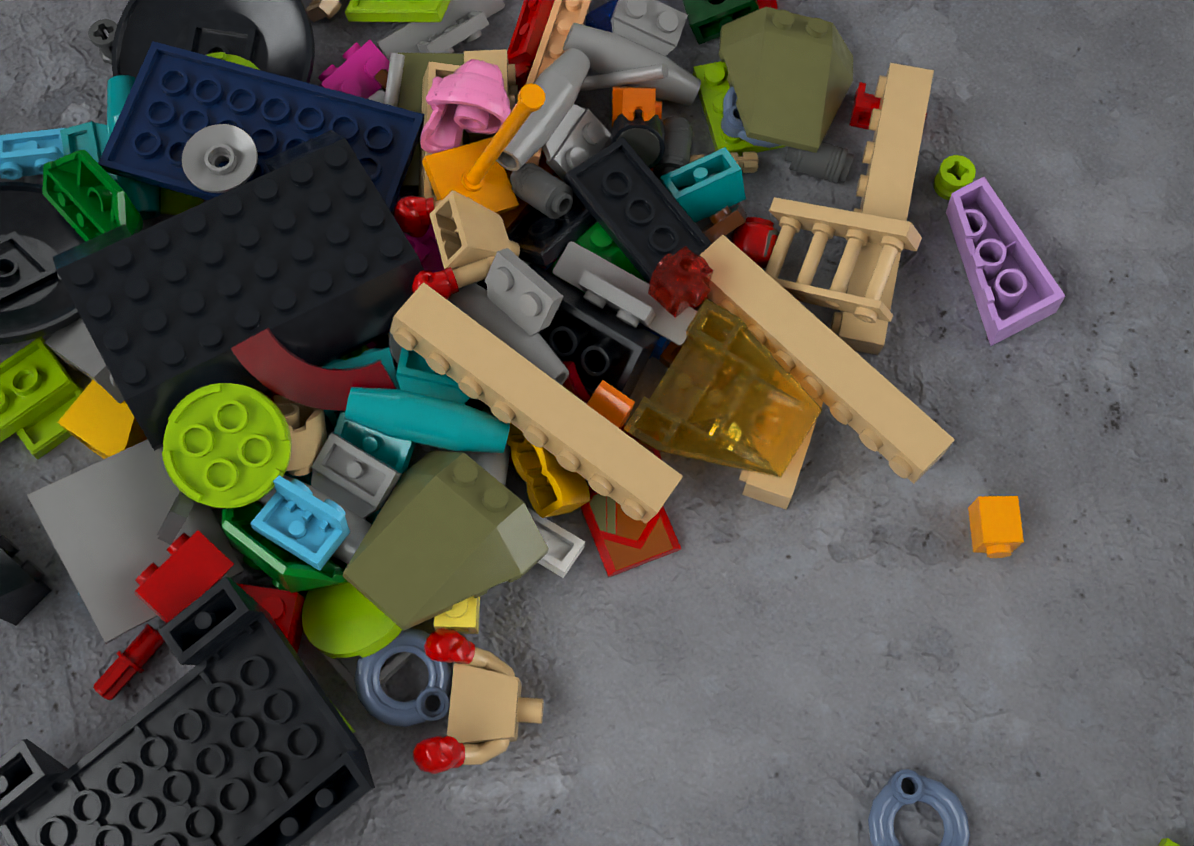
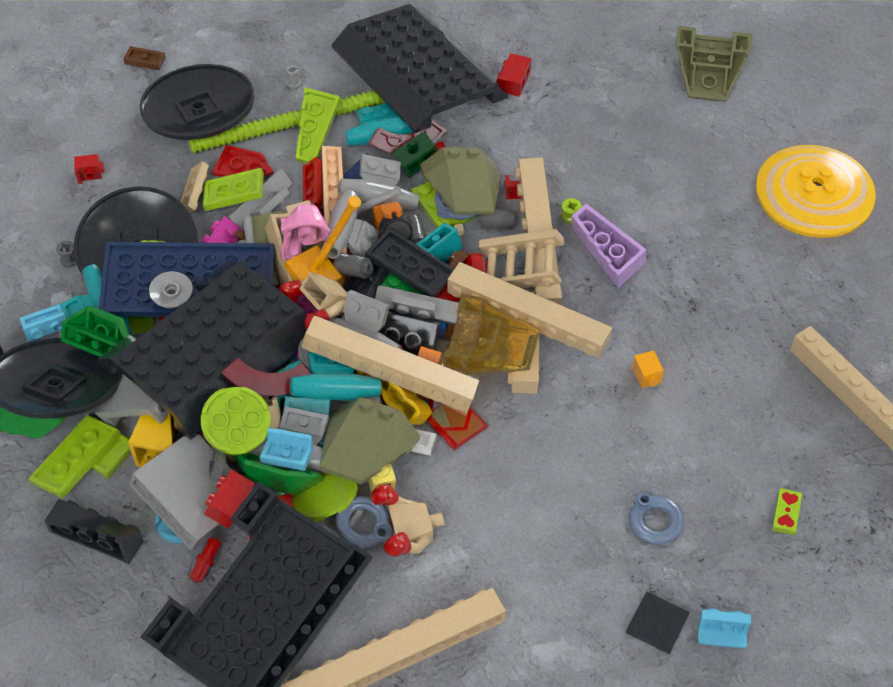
camera: 20 degrees left, 15 degrees down
(680, 281) = (446, 287): clear red brick -> none

